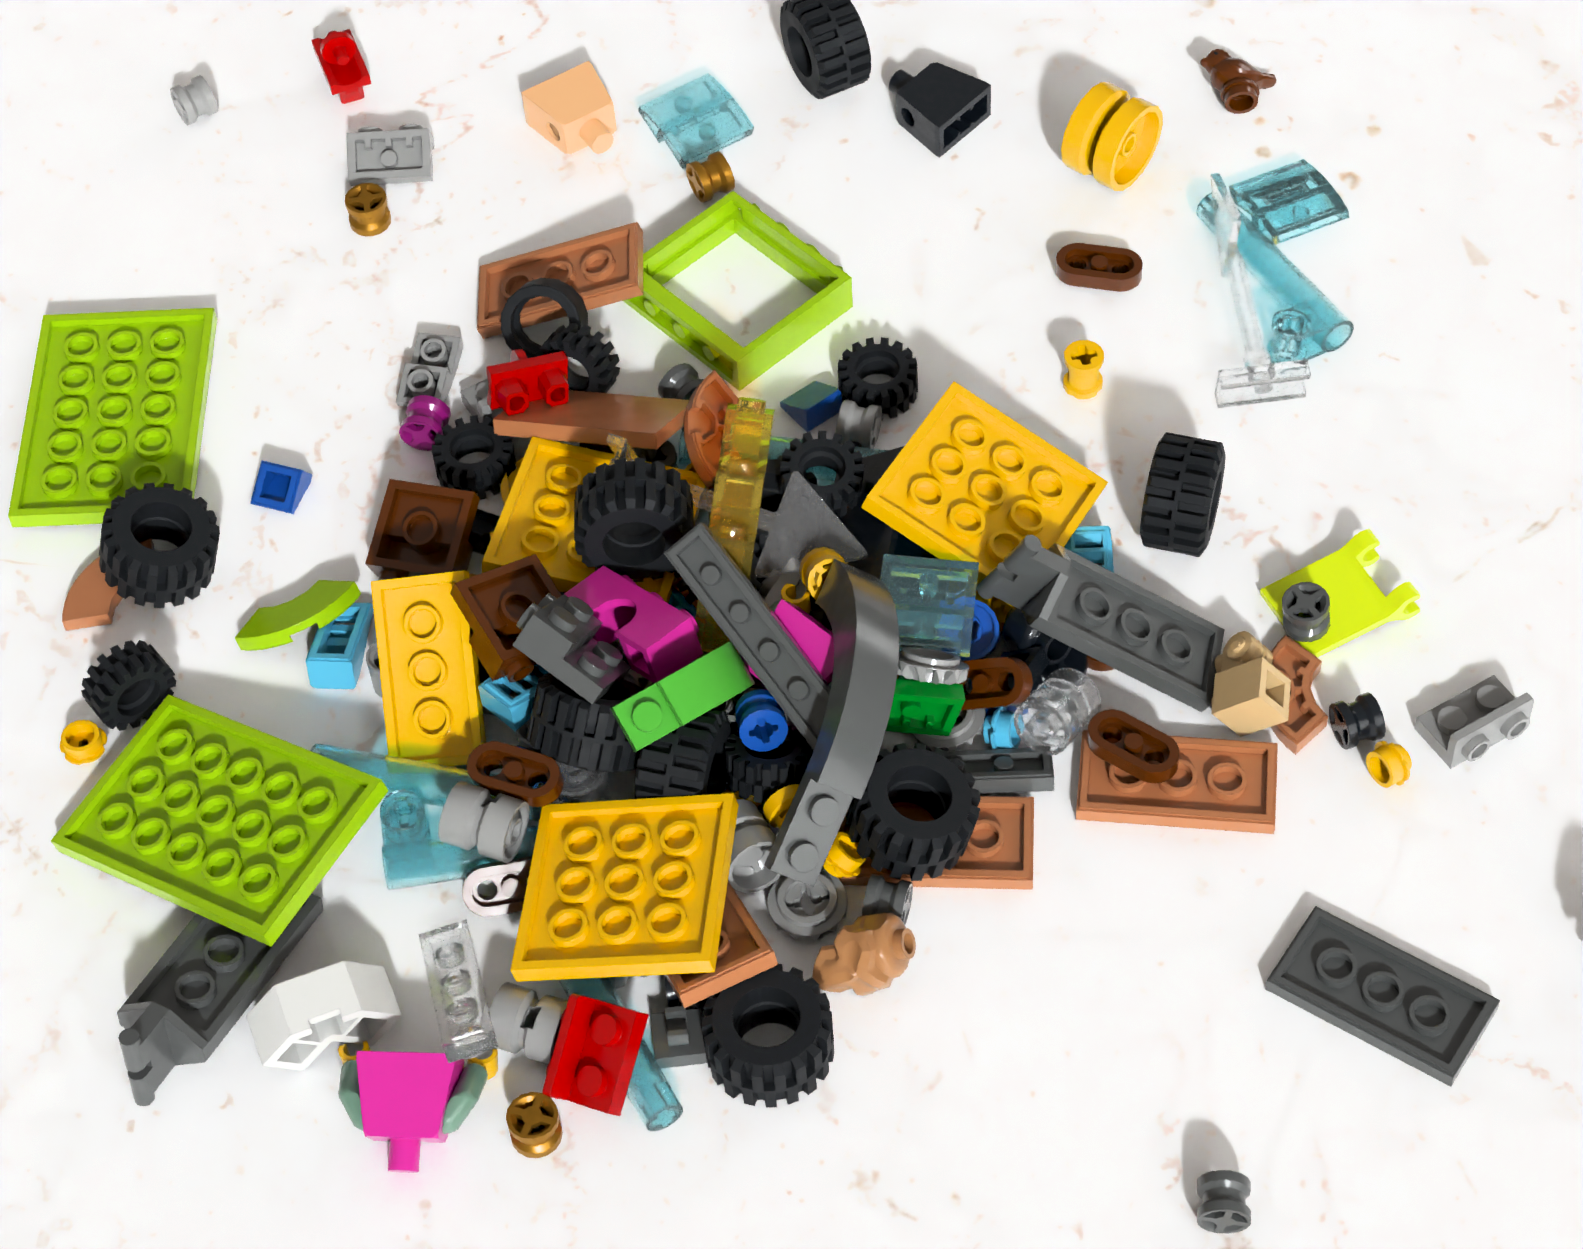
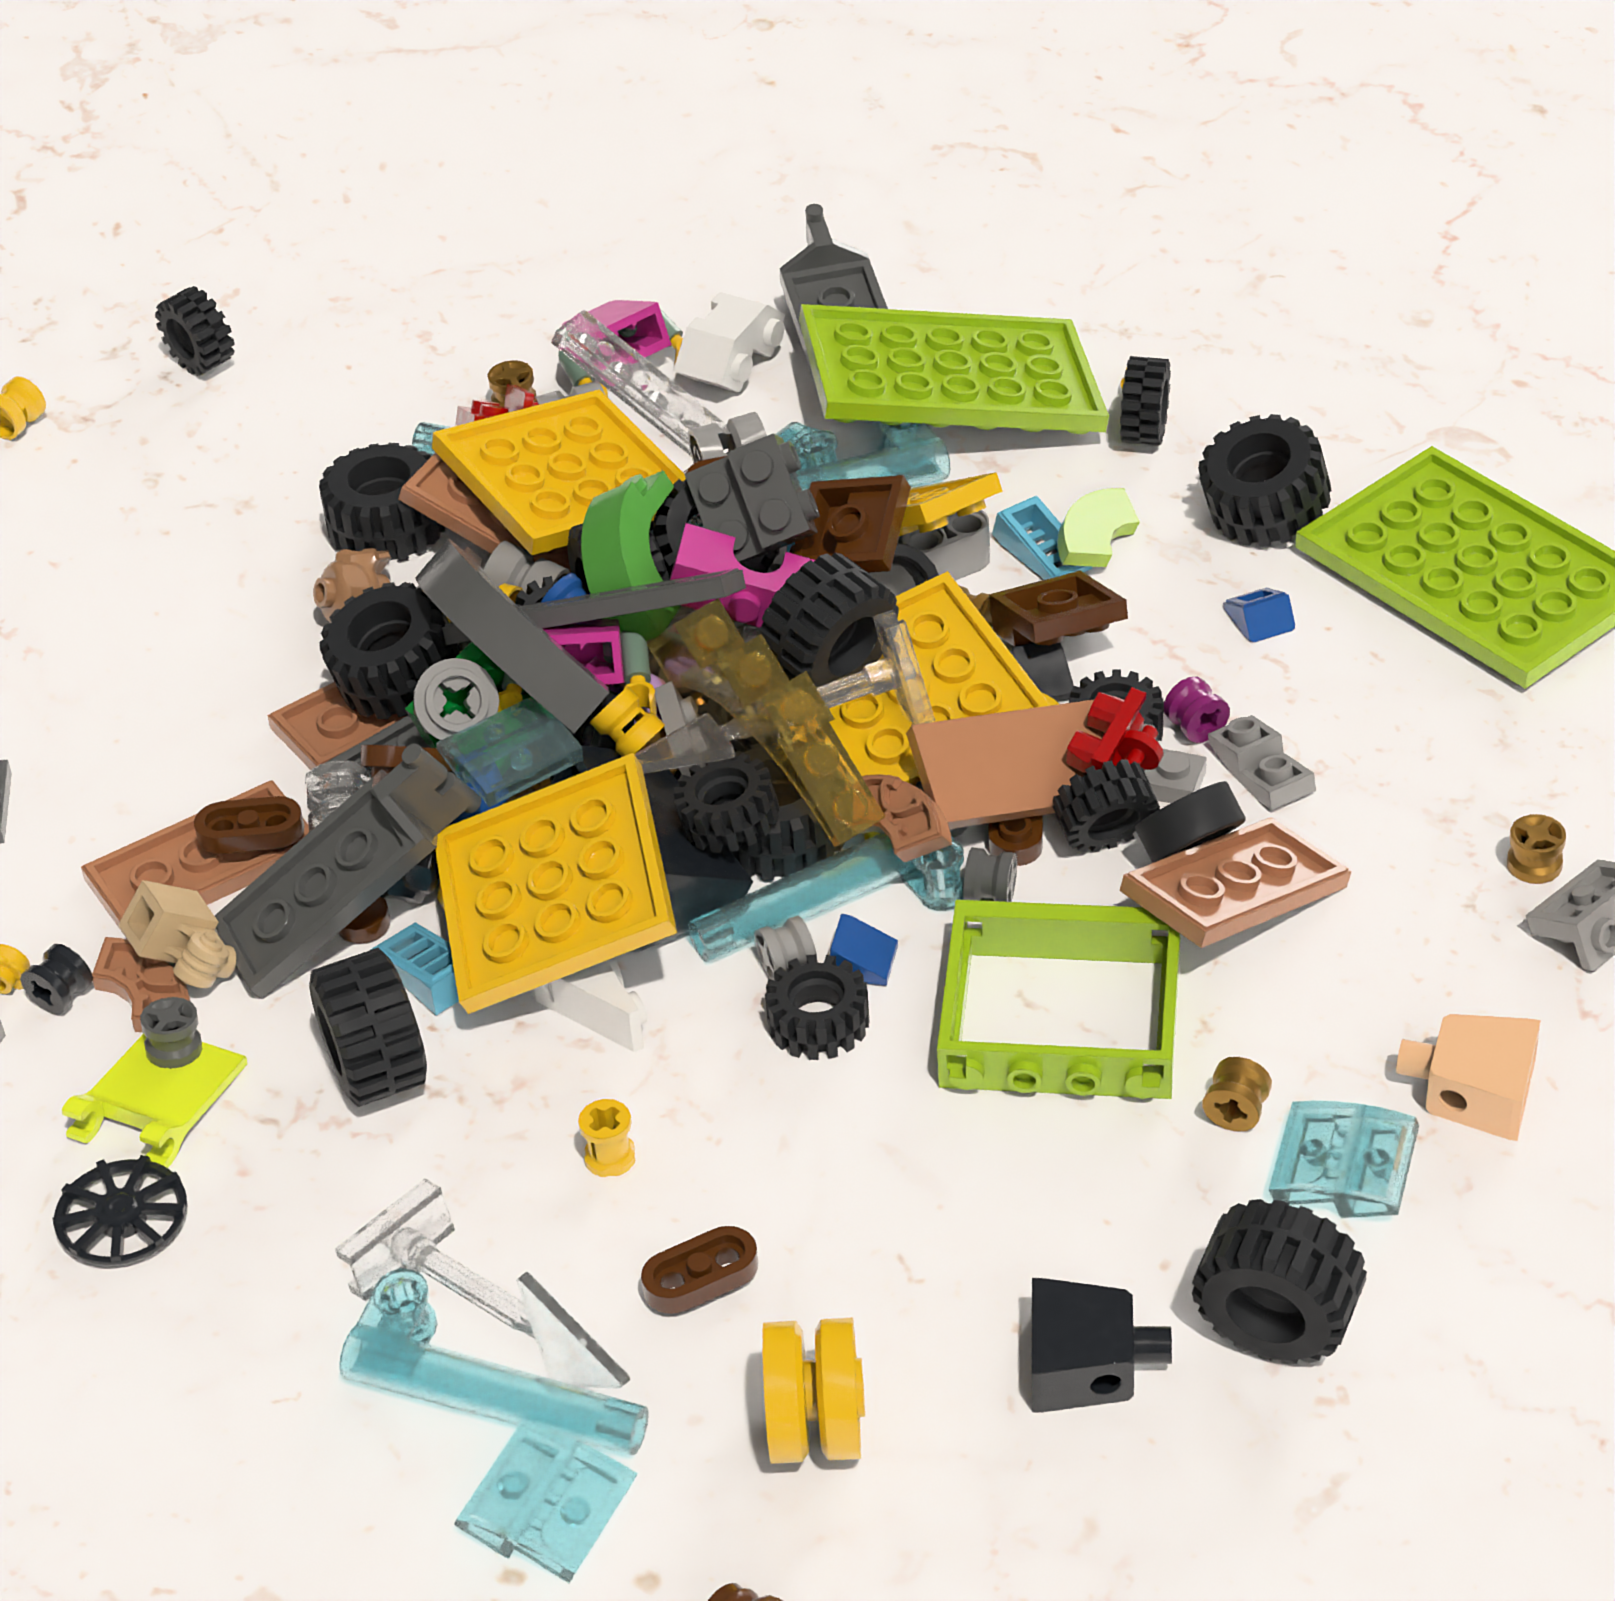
camera: 140 degrees right, 10 degrees down
(1419, 524) = (120, 1211): none -> black wheel

